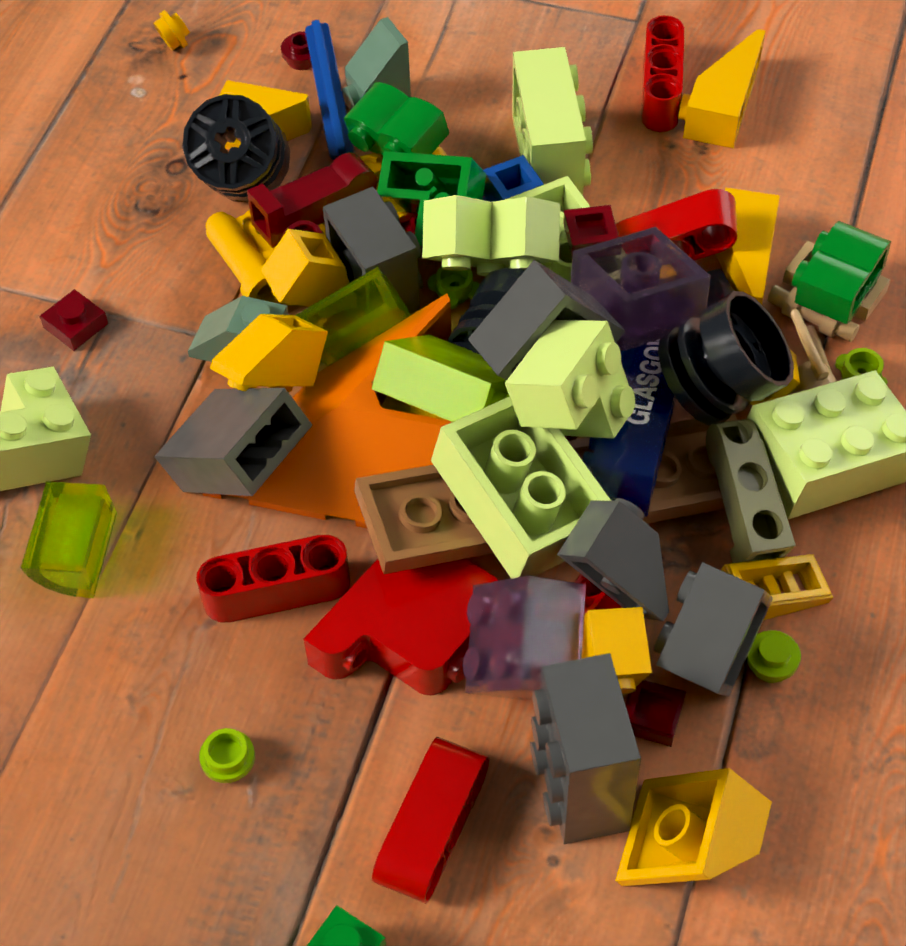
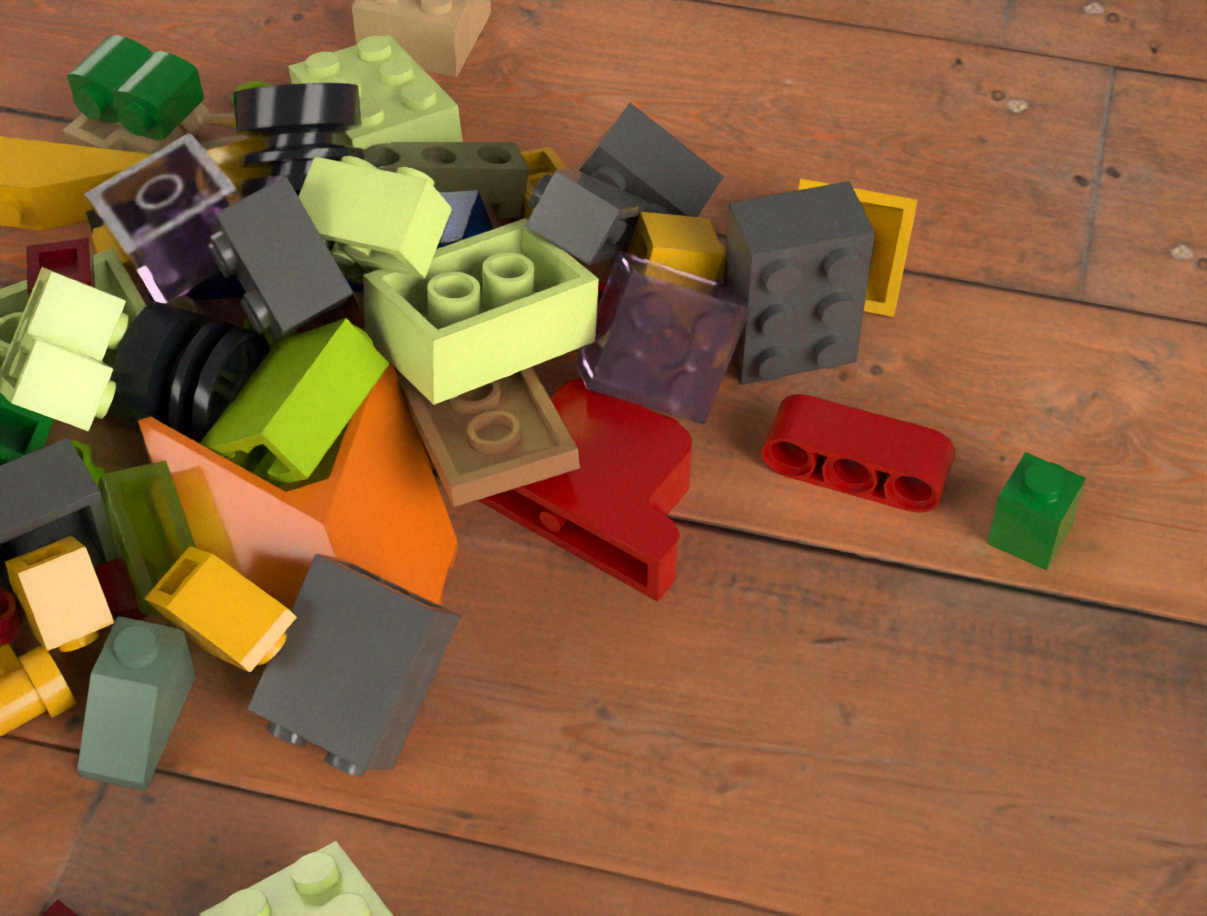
camera: 95 degrees left, 5 degrees down
(70, 538) = (492, 864): clear neon green brick -> none
(227, 755) = (801, 658): lime plate -> none
(250, 569) = (545, 592): red beam -> none
(696, 224) = (42, 203): red beam -> none

